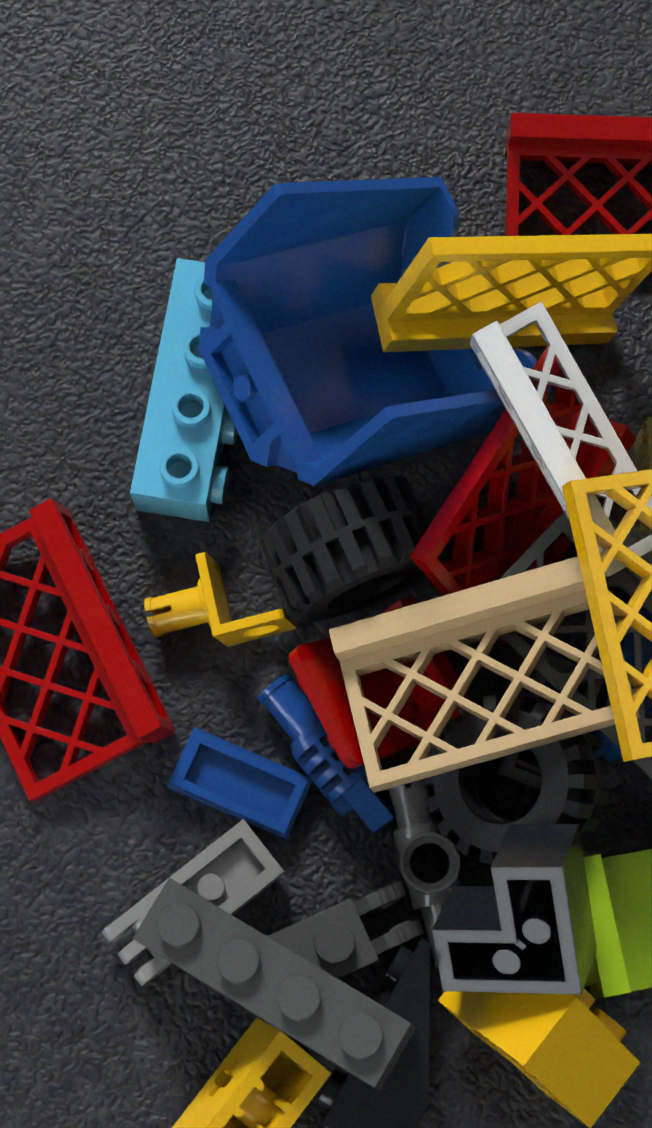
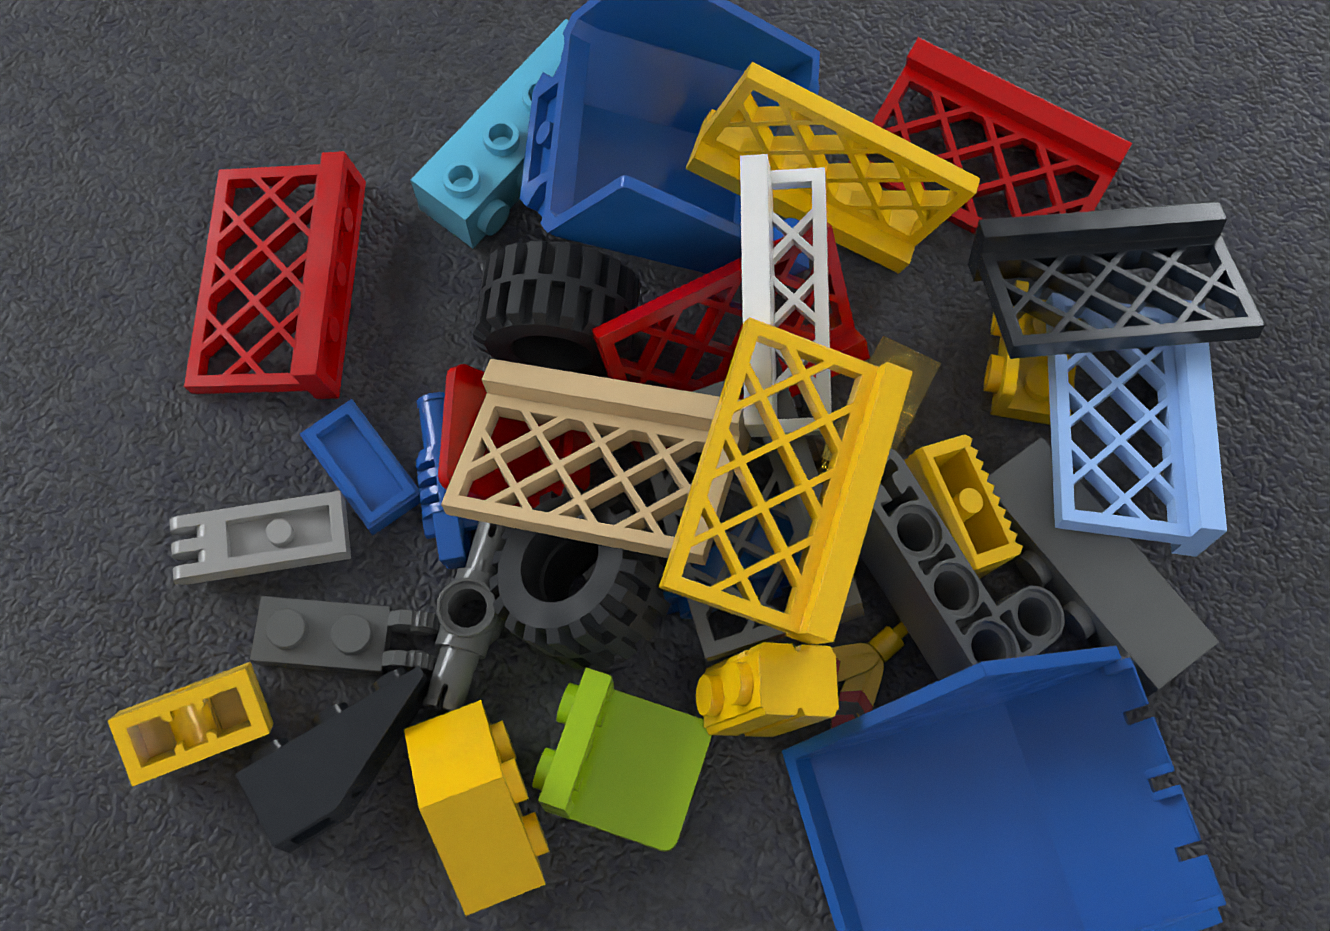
camera: 30 degrees right, 5 degrees down
(209, 605) = (426, 312): yellow bracket -> none
(275, 984) = (266, 632): dark grey brick -> none
(526, 929) = (505, 688): black brick -> none

